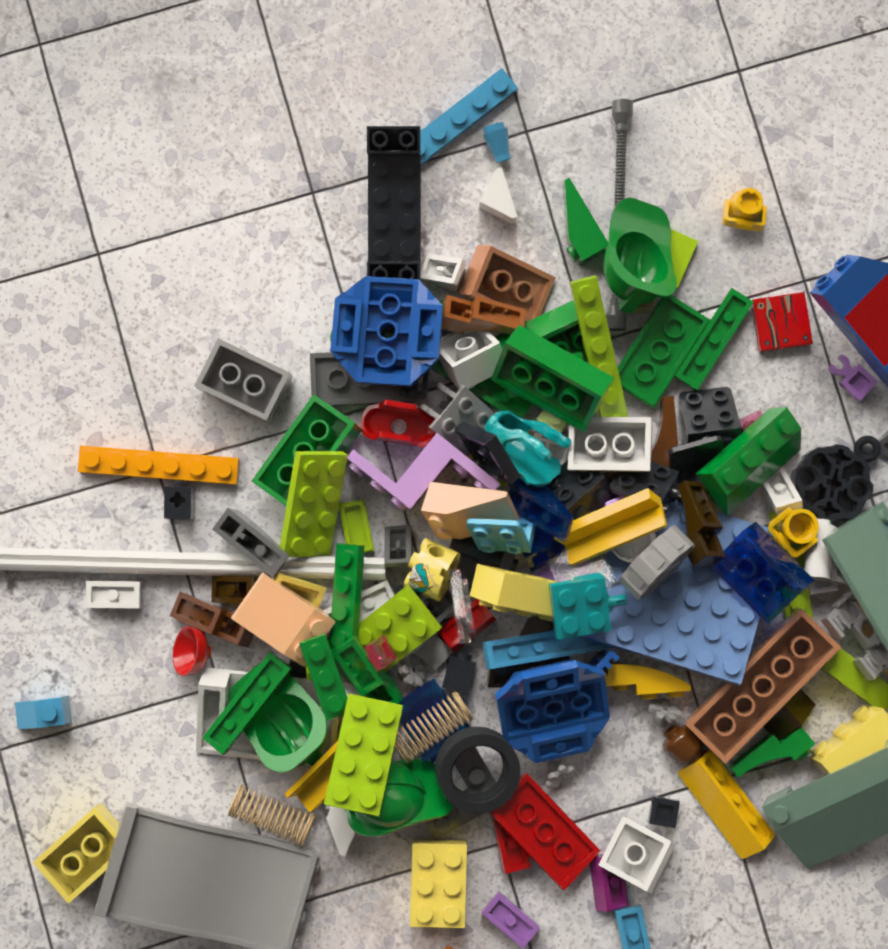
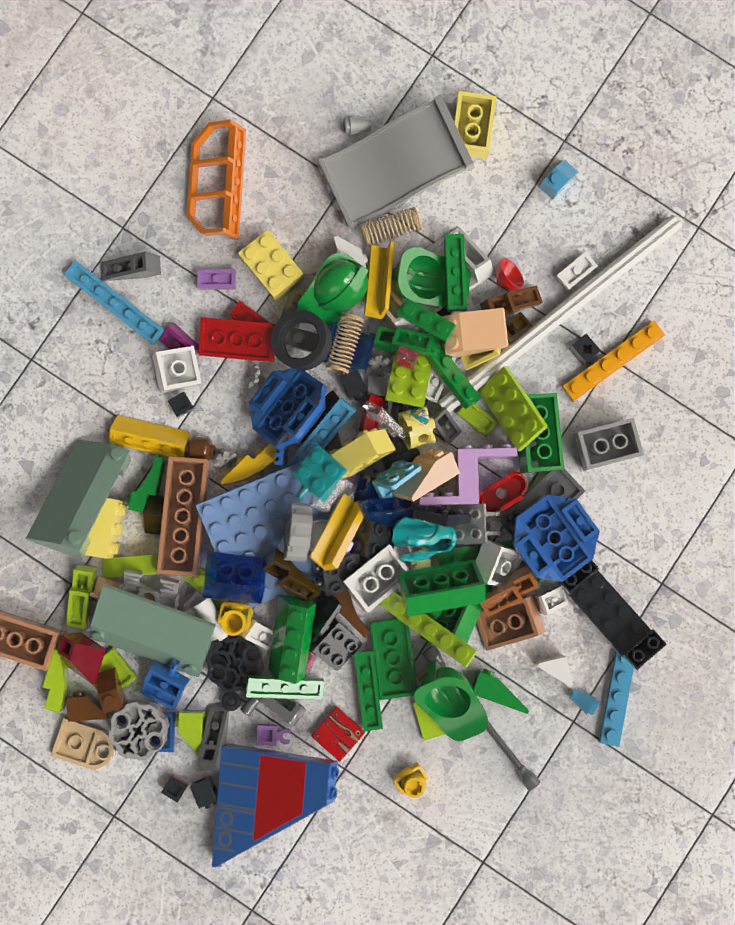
camera: 135 degrees right, 0 degrees up
(251, 541) = (528, 360): dark grey slope -> none
(363, 755) = (370, 294): lime plate -> none
(814, 425) = (273, 688): none -> plate
(816, 384) = (290, 713): none -> dark grey beam

